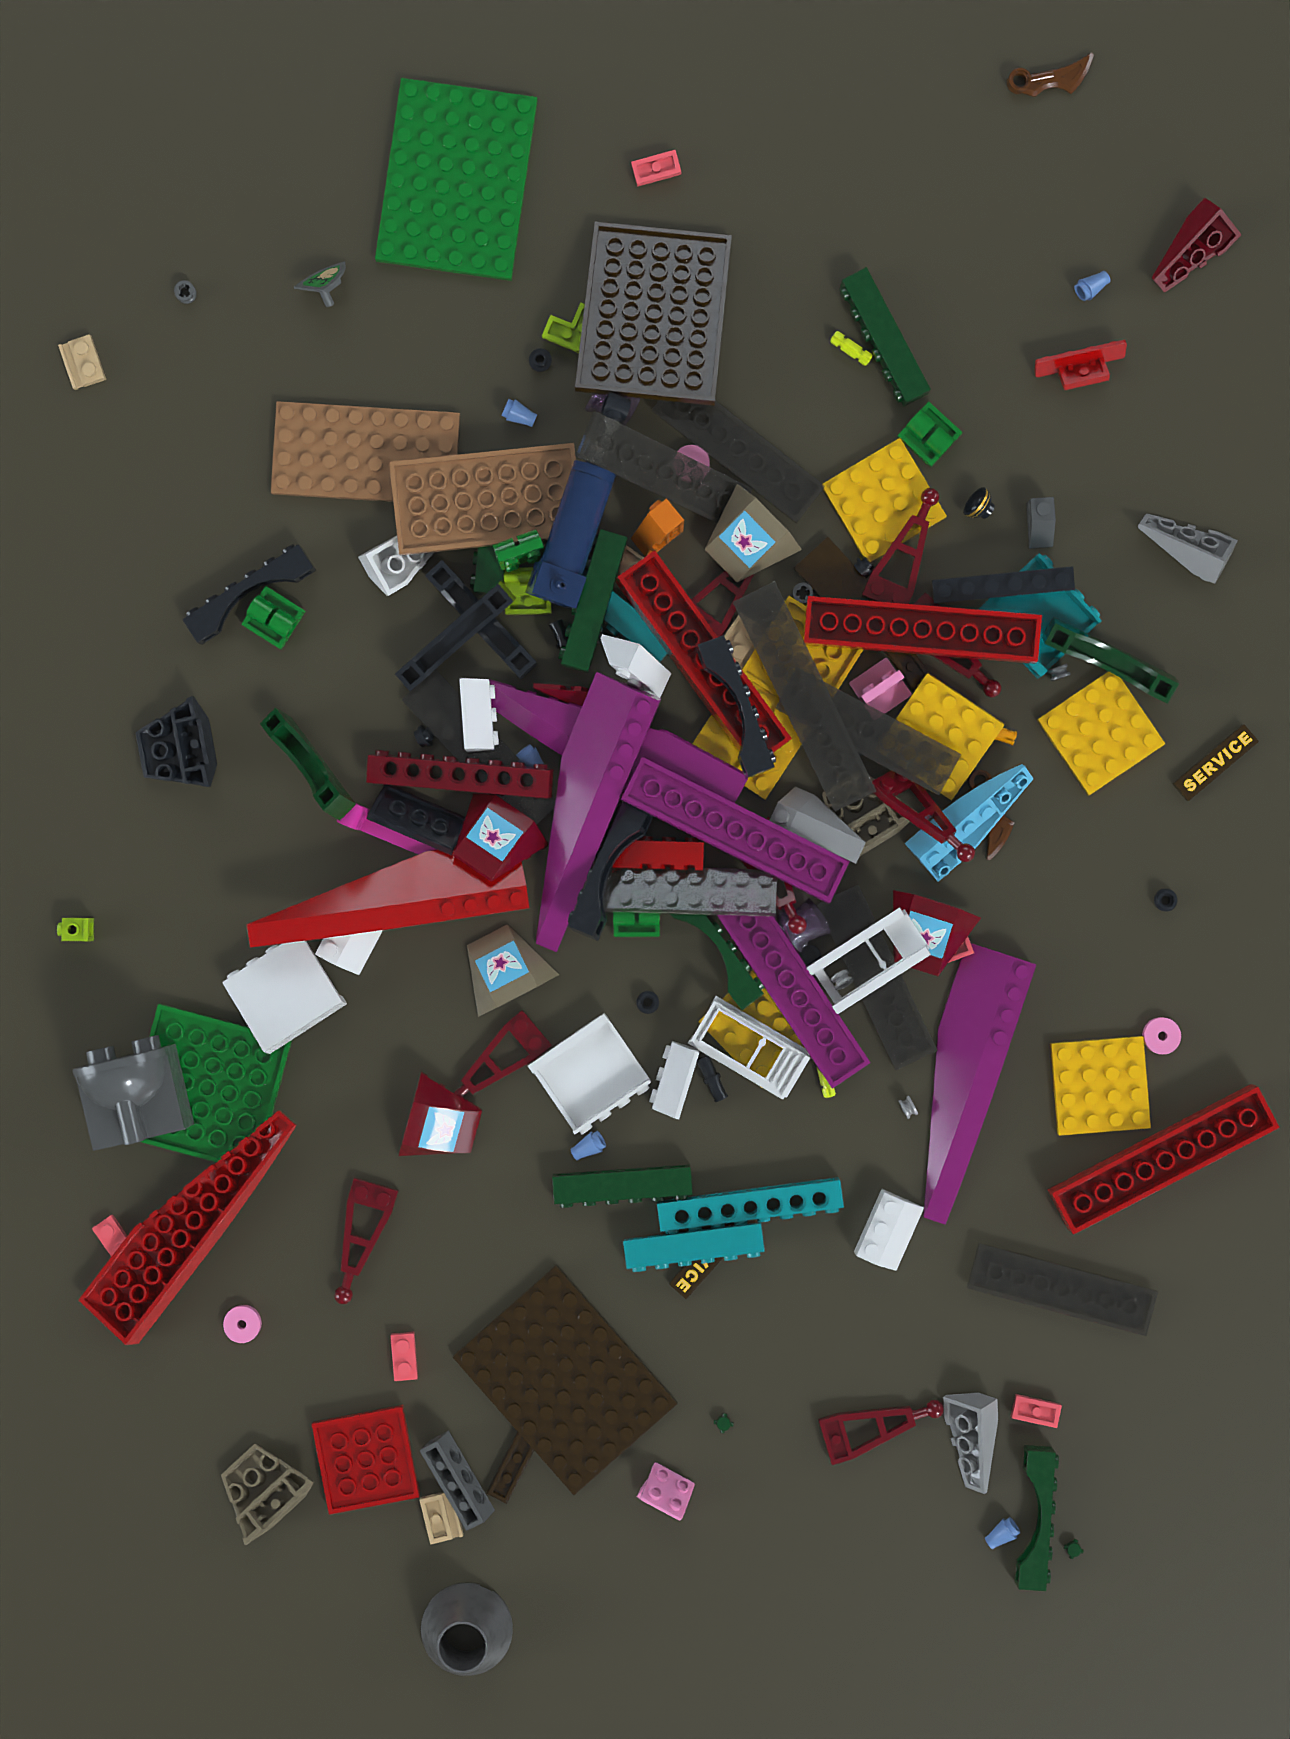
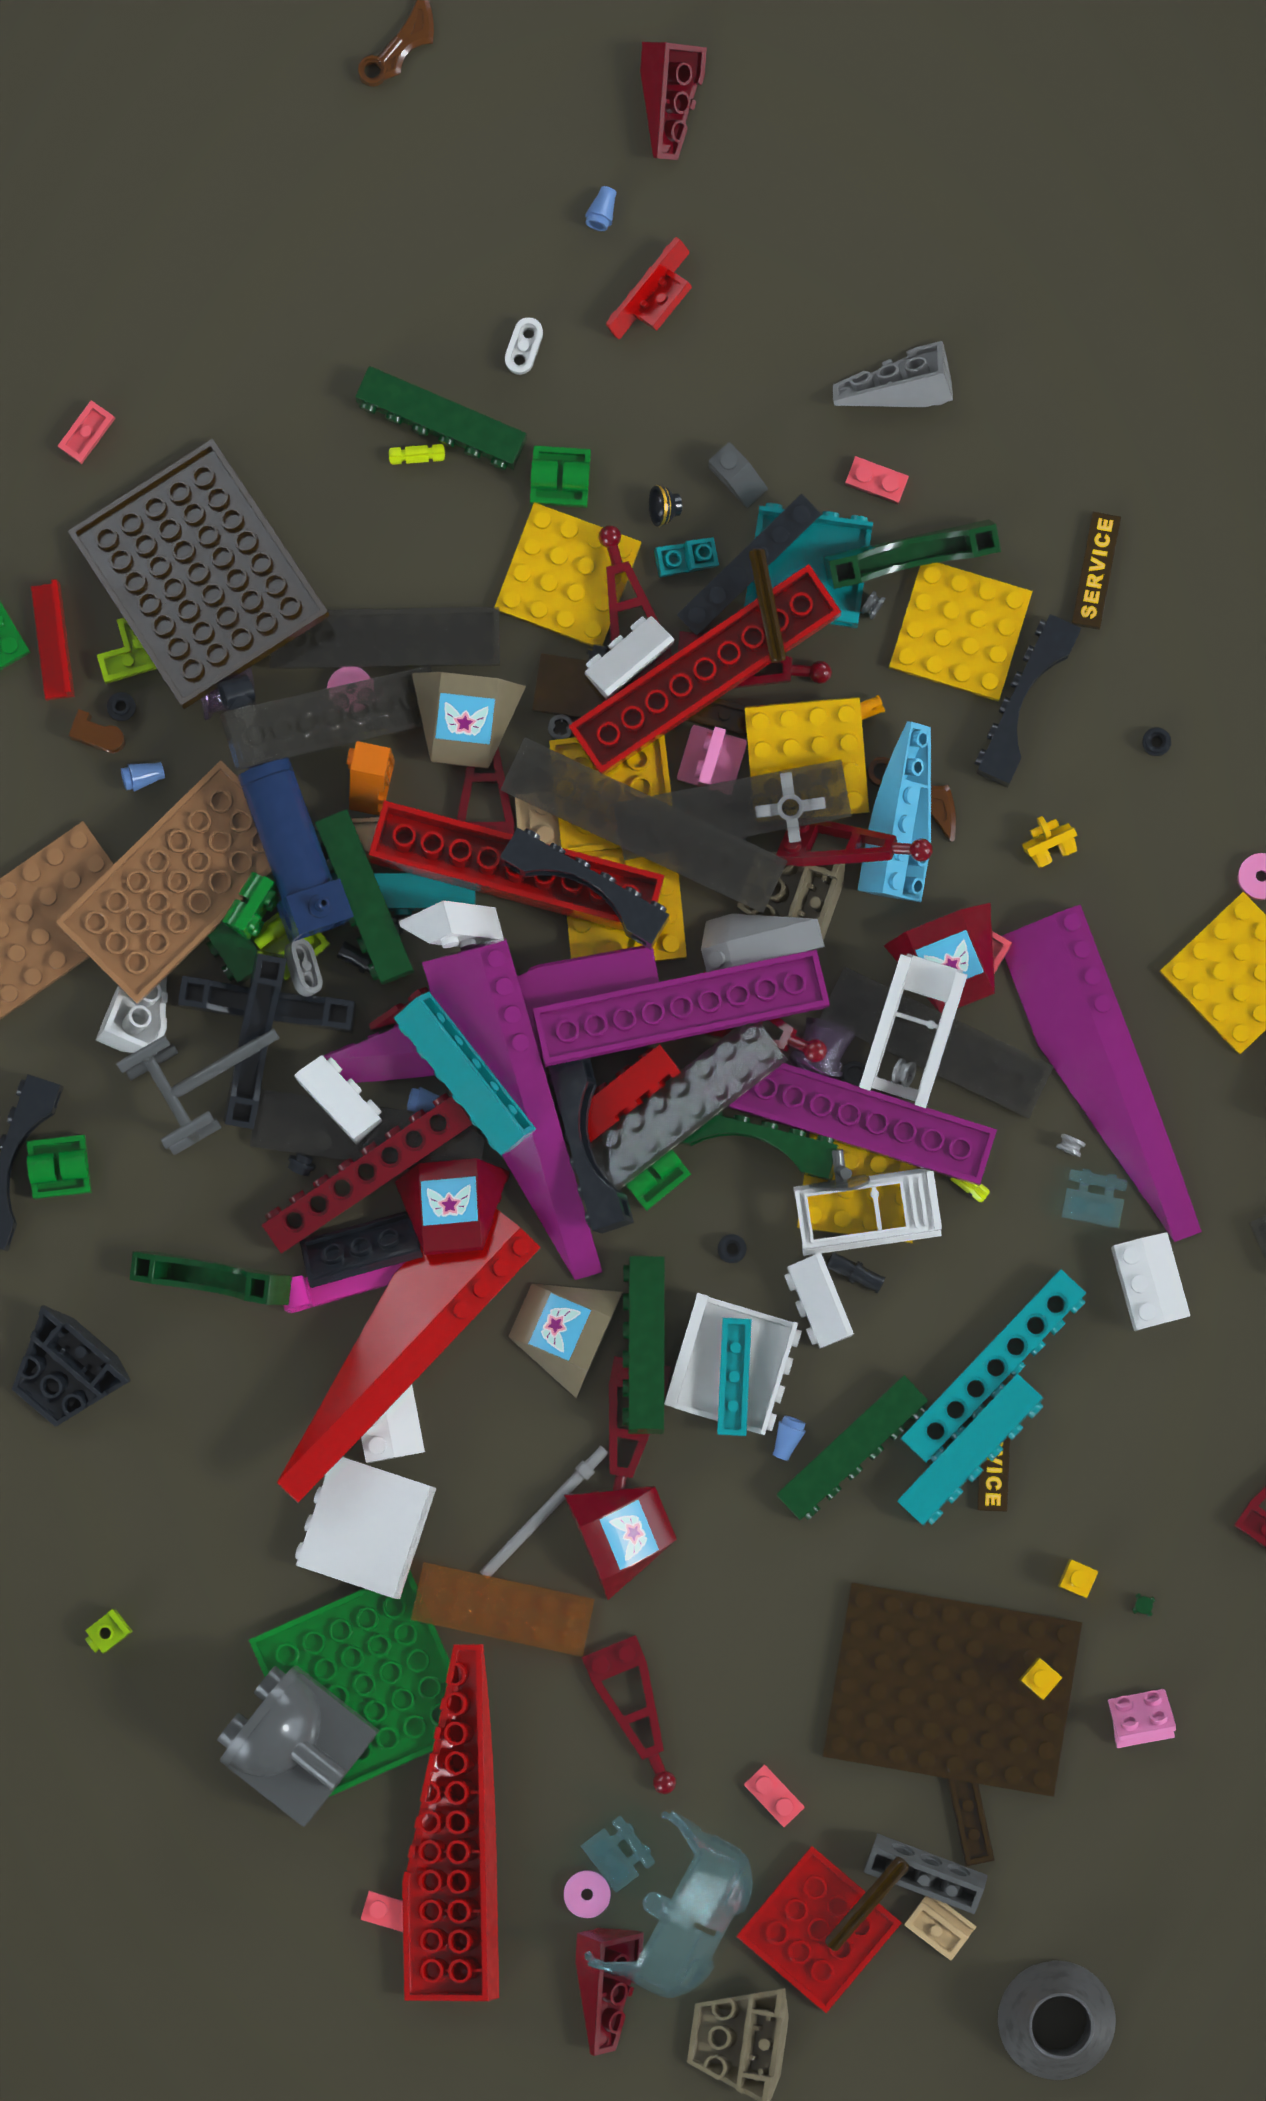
camera: 35 degrees left, 5 degrees down
(215, 1379) = (601, 1992): none -> dark red wedge
(273, 1315) = (611, 1860): none -> clear light blue plate
(306, 1394) = (711, 1894): none -> clear light blue piece
(328, 1110) = (502, 1609): none -> clear orange plate
(388, 595) = (204, 1125): none -> dark grey piece
(405, 1471) = (867, 1903): none -> dark brown axle
(446, 1065) = (583, 1471): none -> light grey bar
(514, 372) = (103, 738): none -> reddish brown leg
(521, 616) = (303, 967): none -> light grey plate
(530, 284) = (52, 641): none -> red panel
(546, 1020) = (646, 1345): none -> dark green brick
(567, 763) = (464, 1073): none -> teal brick
(584, 1083) = (734, 1376): none -> teal plate
(623, 1421) = (1040, 1678): none -> yellow brick
(696, 1376) = (1077, 1578): none -> yellow brick
(750, 1019) = (843, 1179): none -> dark grey shield
(881, 582) = (628, 656): none -> white slope
(890, 1156) = (1092, 1207): none -> clear light blue plate
(911, 749) = (788, 793): none -> light grey pin
(967, 549) = (686, 557): none -> teal slope
(972, 333) = (523, 346): none -> white plate
(994, 620) = (767, 605): none -> dark brown axle
(1051, 905) = (1061, 836): none -> yellow hips
(1064, 831) = (1052, 647): none -> black arch
(1125, 595) = (876, 480): none -> coral plate

